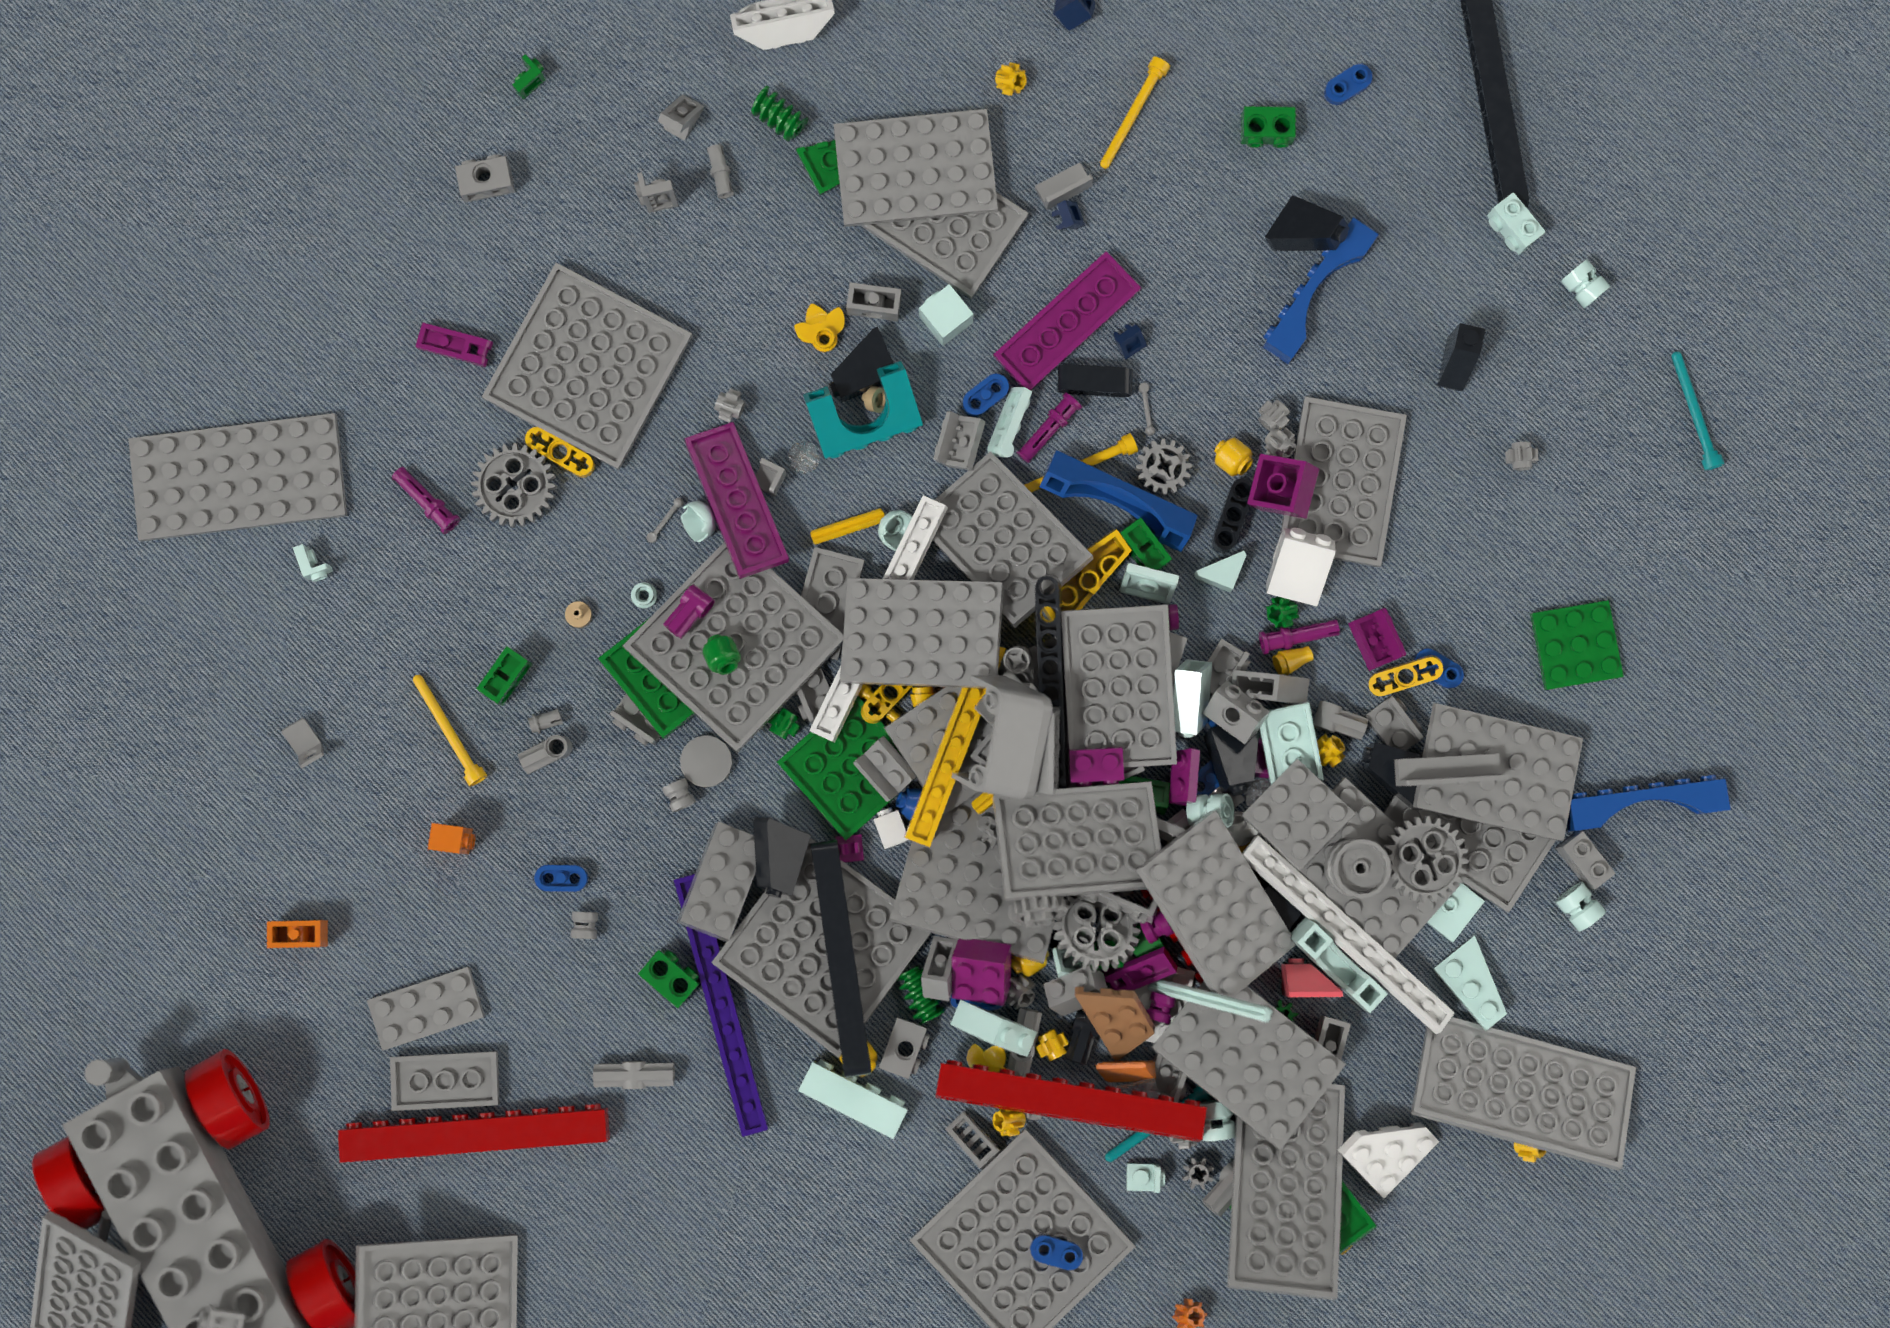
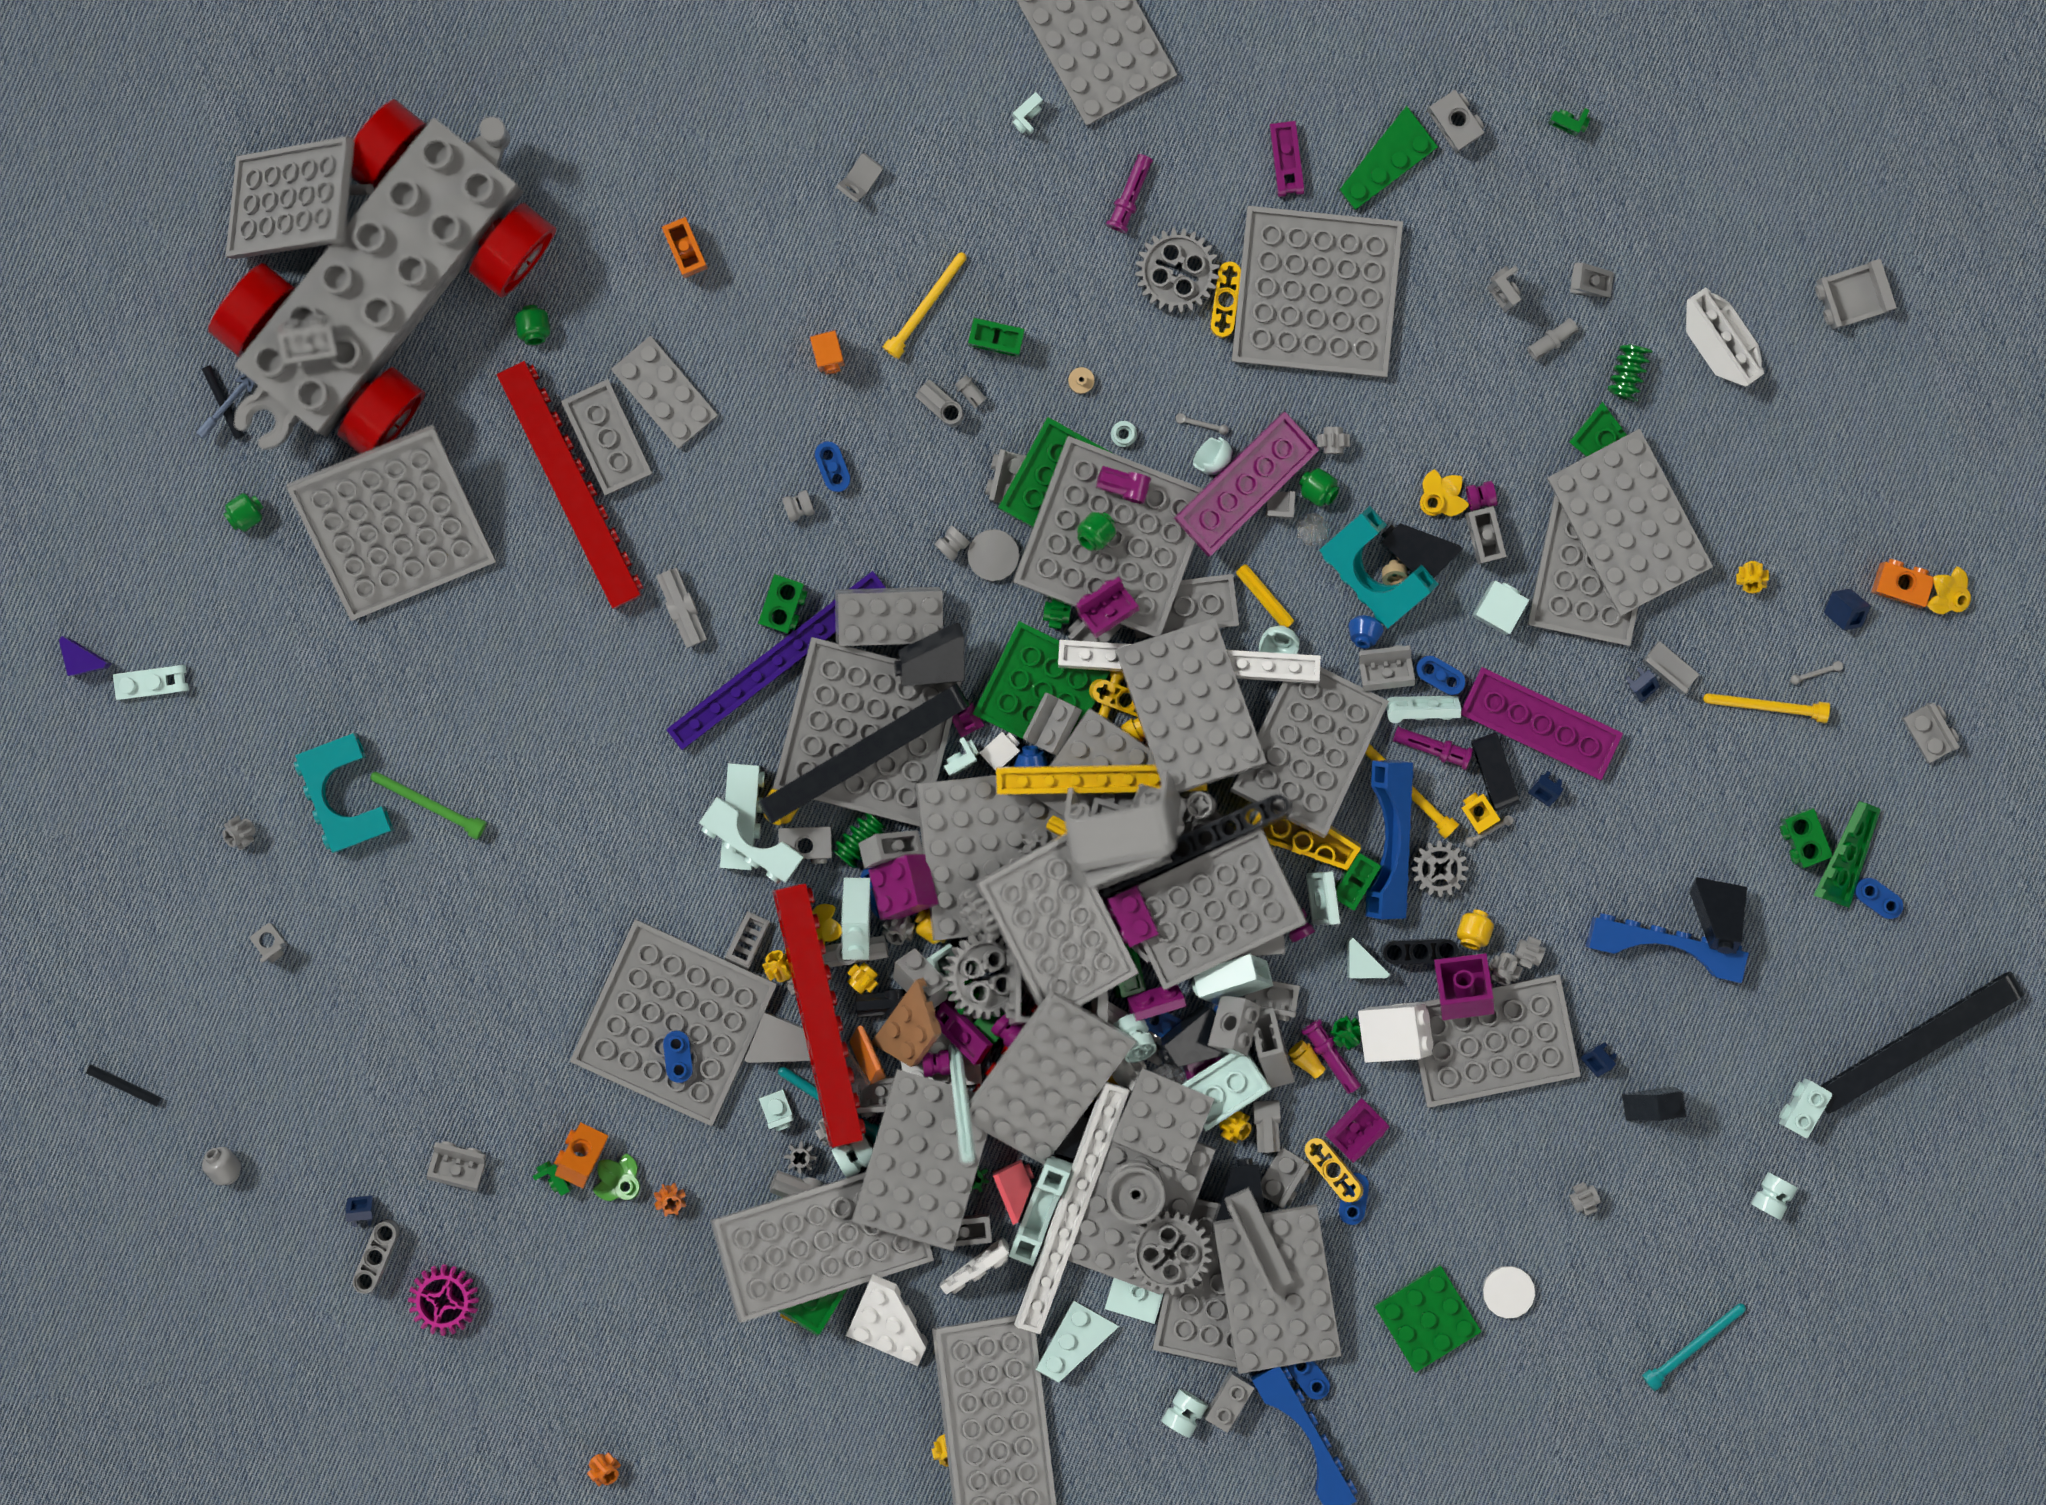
camera: 75 degrees right, 5 degrees up
(309, 1108) = (532, 325): none -> green head
(492, 247) = (1393, 155): none -> green wing
(767, 435) = (1319, 487): none -> green head
(796, 673) = (1106, 607): none -> magenta bracket
(836, 291) = (1481, 495): none -> magenta wheel
(850, 1118) = (722, 821): none -> light aqua arch
(886, 870) = (959, 763): none -> light aqua bracket
(917, 446) = (1365, 631): none -> blue cone
(1079, 1150) = (777, 1041): none -> light grey slope
(1122, 38) = (1836, 666): none -> light grey hinge
(1135, 405) = (1484, 821): none -> yellow brick
(1303, 96) = (1848, 859): none -> green wing
(1369, 1050) = (993, 1256): none -> white plate
(1398, 392) = (1598, 1060): none -> dark blue tile
(1580, 560) = (1508, 1292): none -> white tile
(1589, 776) = (1308, 1377): none -> blue plate

